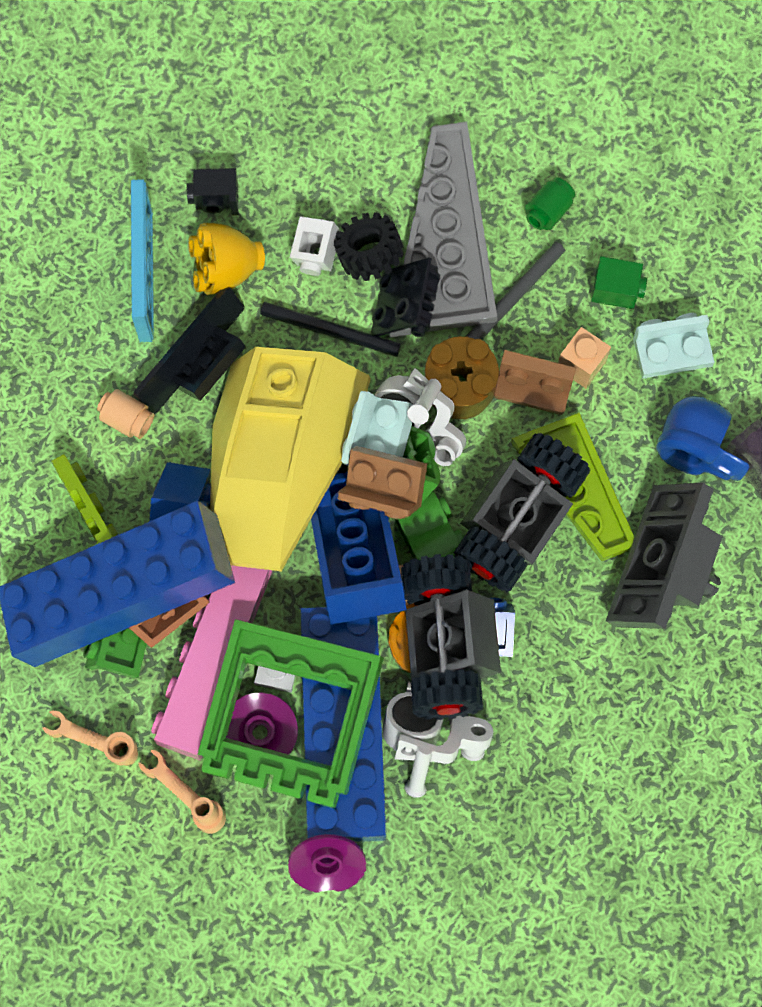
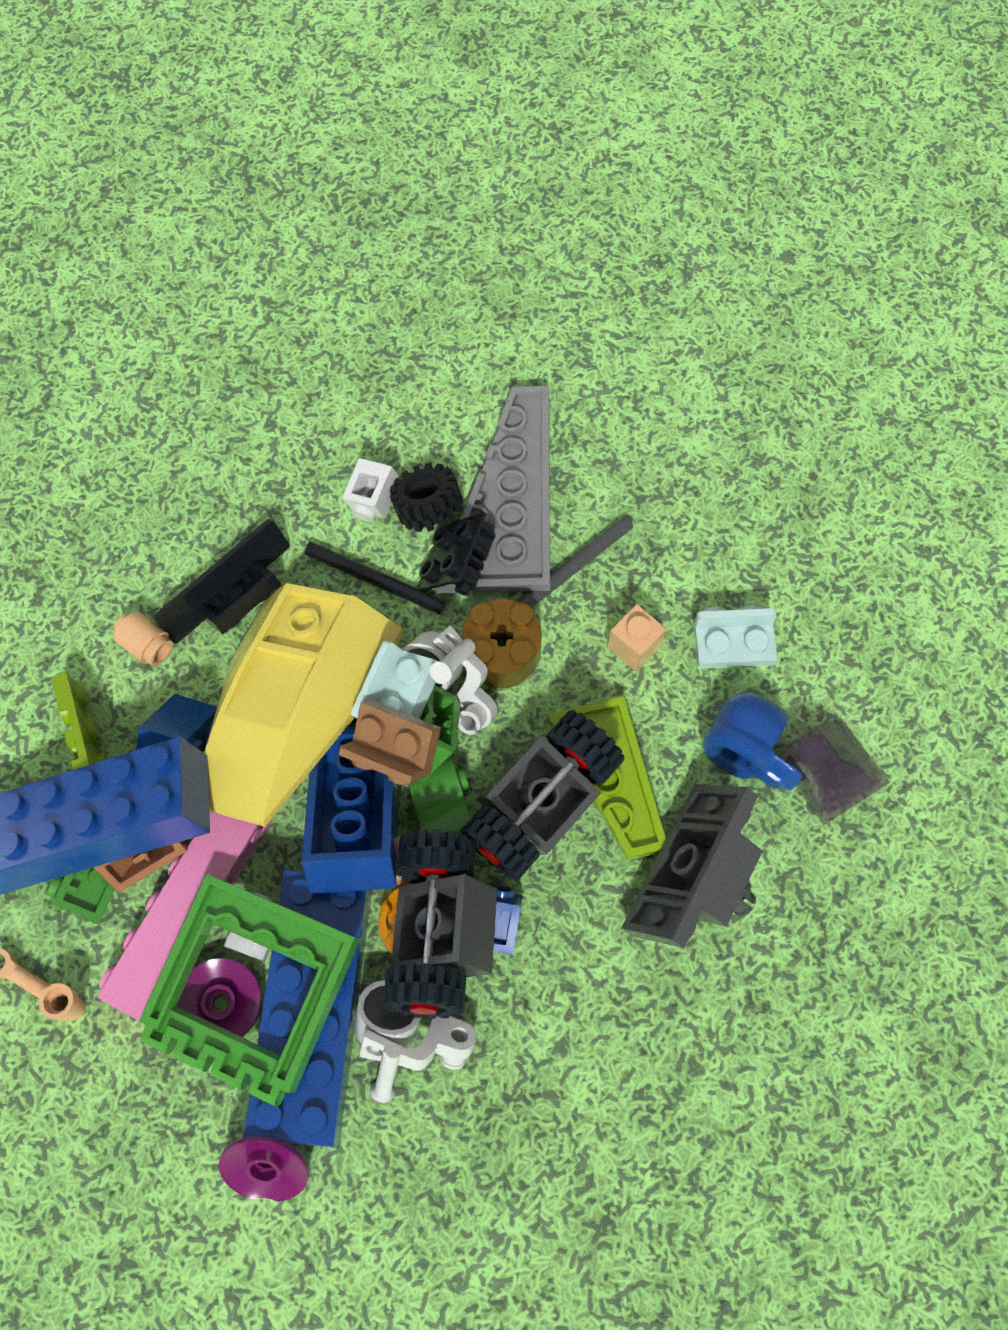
camera: 10 degrees right, 5 degrees down
(142, 261) = (187, 485): medium azure tile -> none
(210, 822) = (152, 1090): light nougat brick -> none
(214, 190) = (279, 424): black brick -> none
(223, 257) = (275, 490): yellow piece -> none
(534, 382) = (580, 657): medium nougat bracket -> none
(550, 204) = (623, 477): green brick -> none
(618, 283) = (684, 565): green brick -> none

